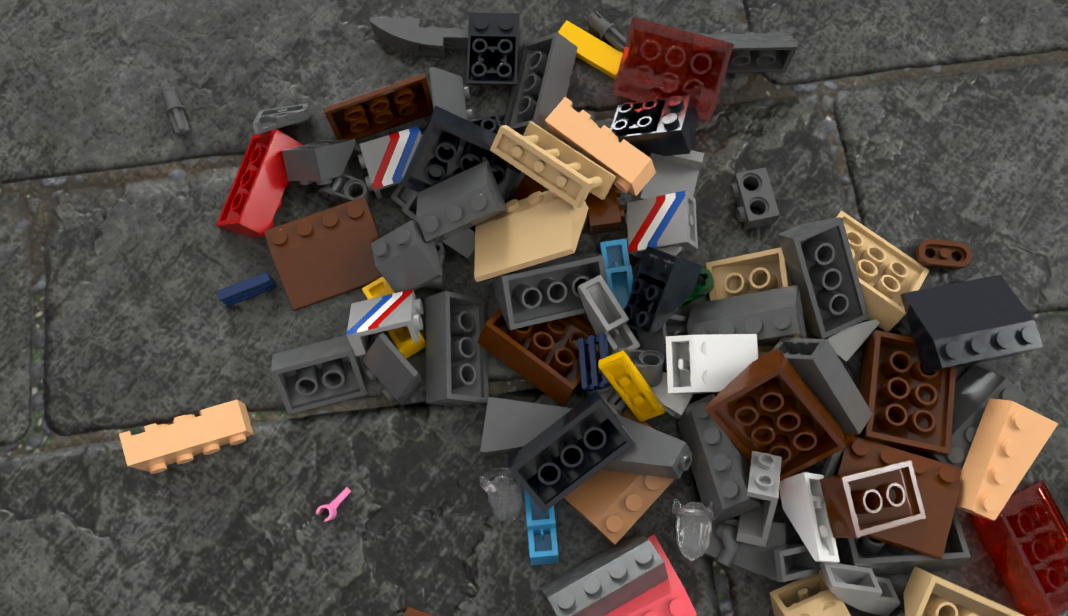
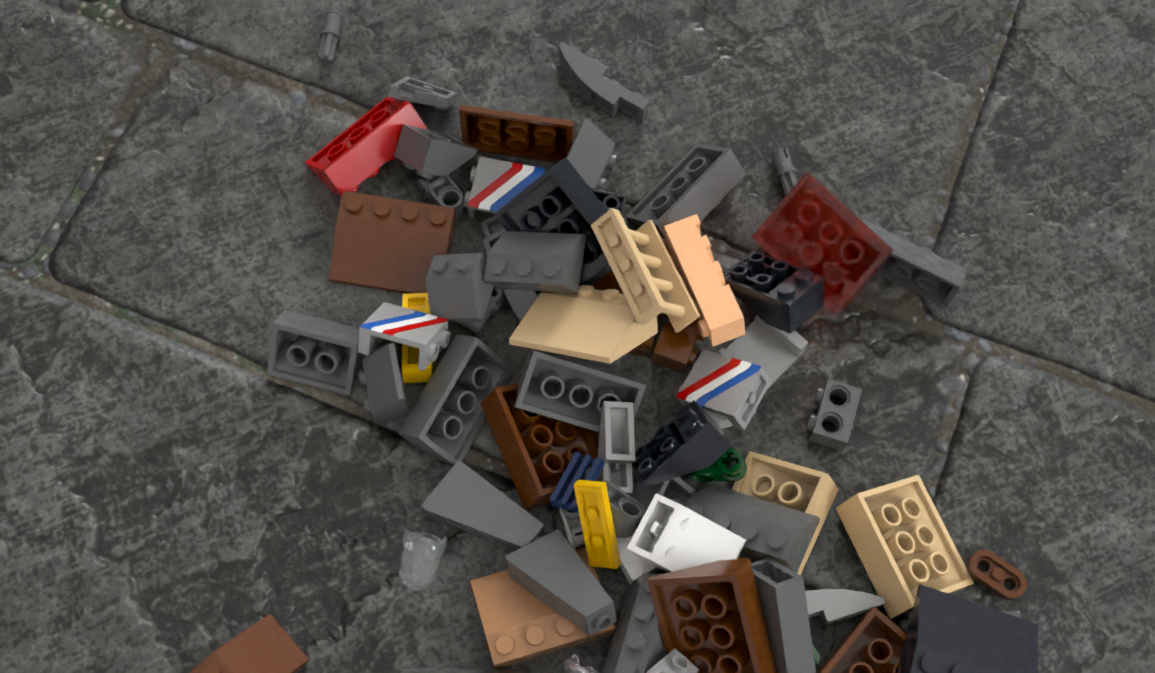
camera: 25 degrees right, 5 degrees down
(186, 437) = (164, 342): light nougat wedge -> none
(246, 289) = (297, 236): dark blue tile -> none
(333, 505) = (256, 481): bright pink hand -> none
(493, 49) = (662, 133): black slope -> none
(541, 533) = (440, 603): dark azure slope -> none
(569, 451) = (502, 551): black slope -> none
(593, 50) = (759, 180): yellow tile -> none
(617, 269) = (655, 408): dark azure slope -> none
(827, 277) = (852, 525): dark grey slope -> none

